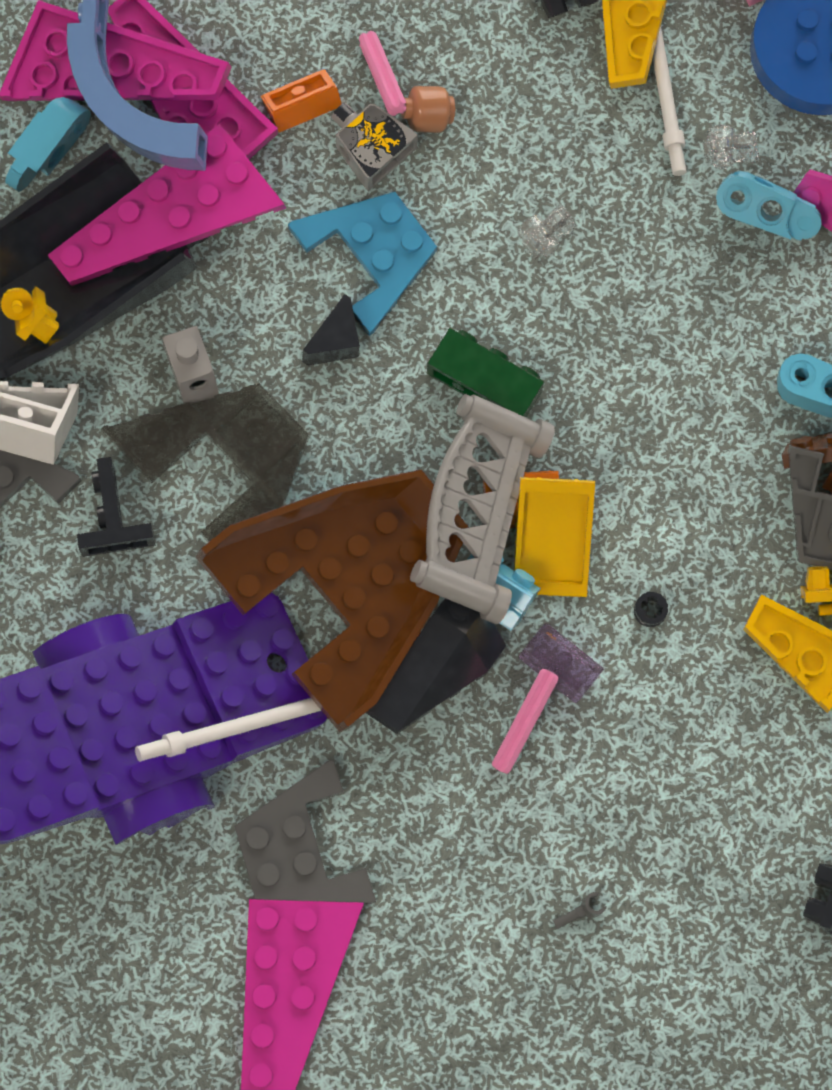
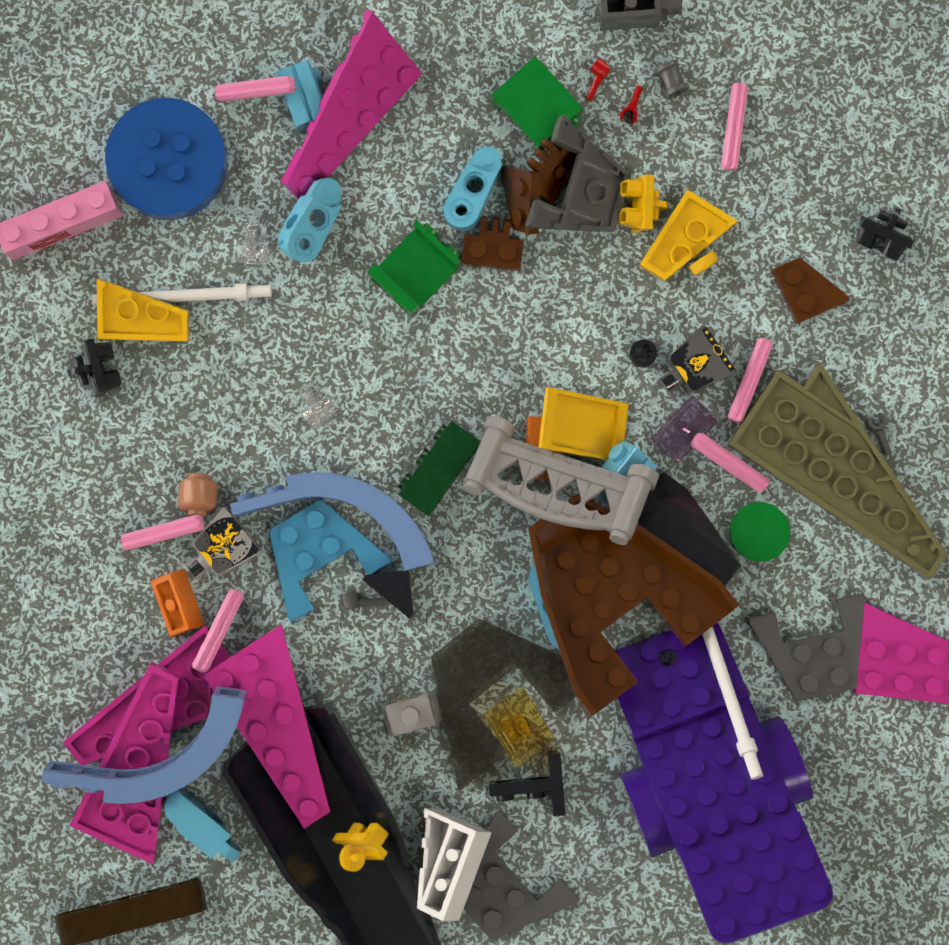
camera: 80 degrees left, 10 degrees up
(181, 489) = (518, 726): none -> clear yellow slope
(272, 141) = (218, 630): none -> bright pink axle
(319, 290) = (351, 601): none -> dark grey hand
(419, 330) = (392, 517): none -> medium blue arch
(442, 767) = (759, 532): none -> green tile
(547, 840) = (825, 454): none -> olive wing
(631, 742) = (750, 380): none -> bright pink axle
(644, 672) = (697, 364): none -> torso
(723, 333) = (416, 268): none -> green panel
(752, 806) = (806, 290): none -> reddish brown wing
(761, 422) = (492, 247): none -> reddish brown hinge
(772, 673) = (703, 263): none -> yellow tile

